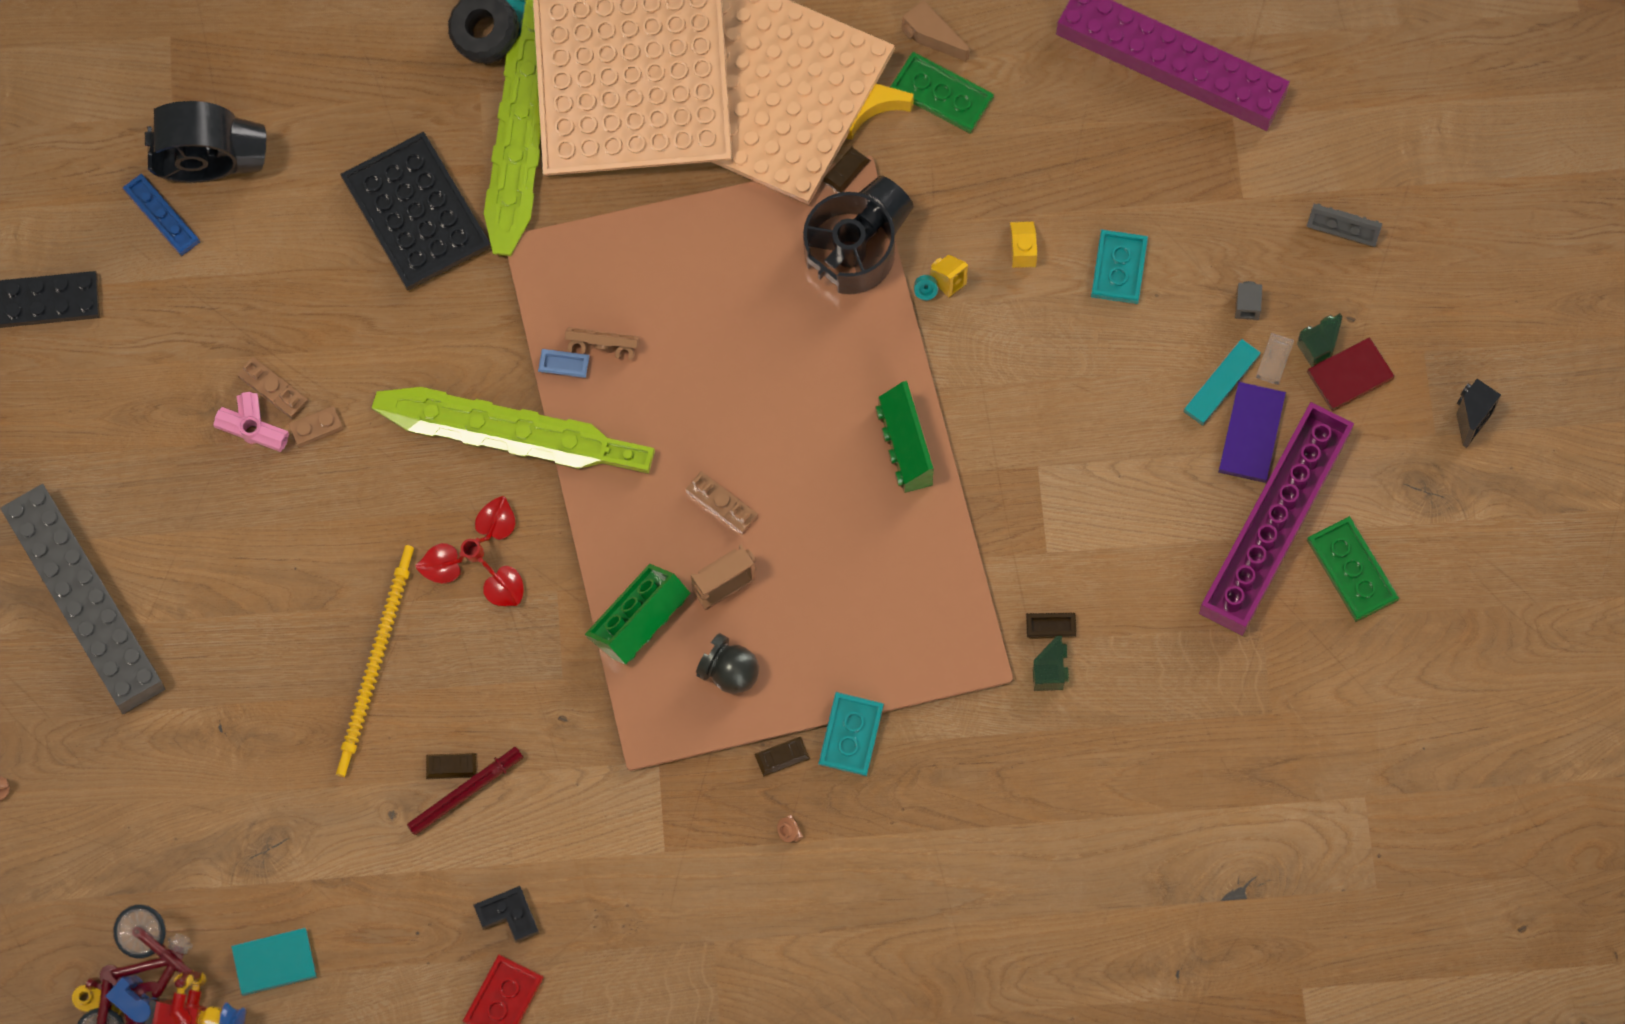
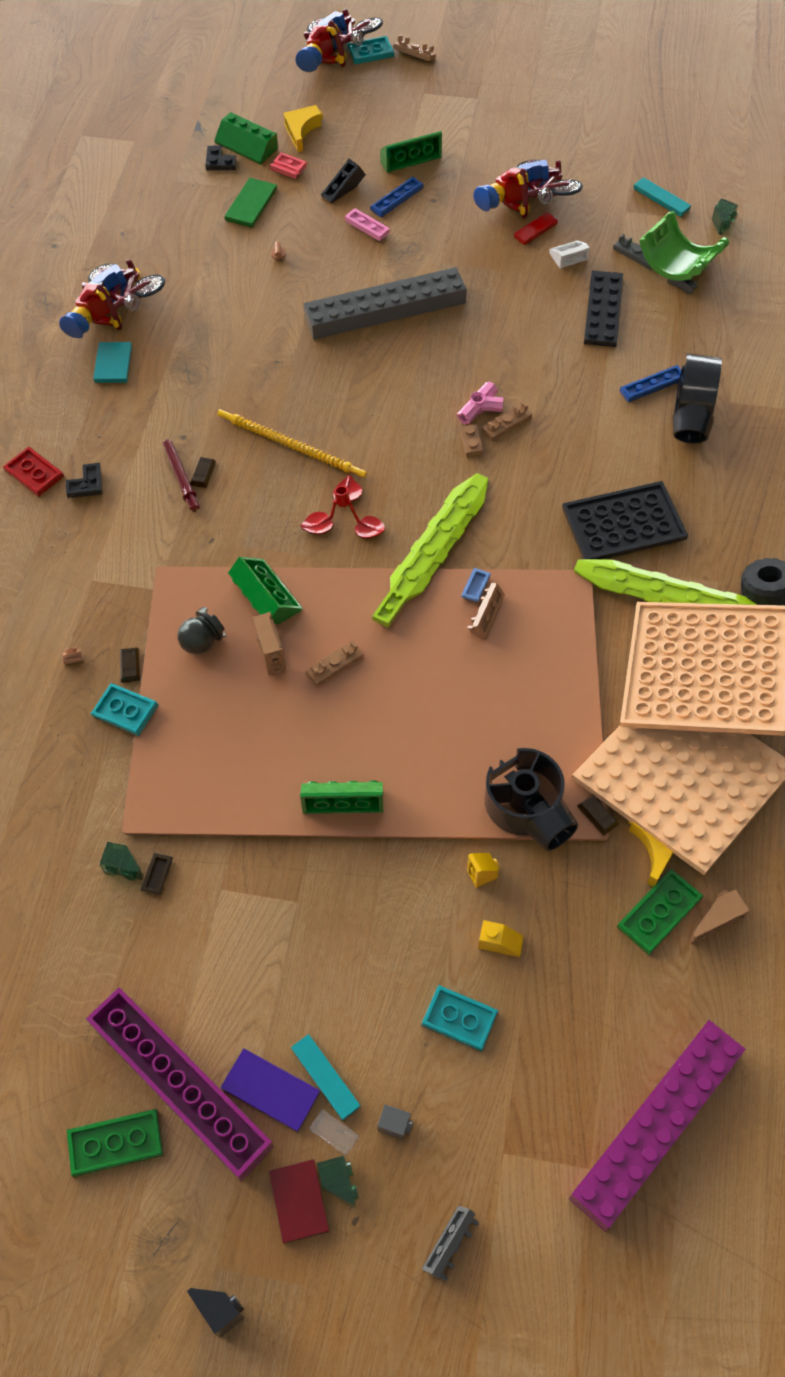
camera: 105 degrees right, 10 degrees down
(925, 287) = (477, 847): teal tile -> none

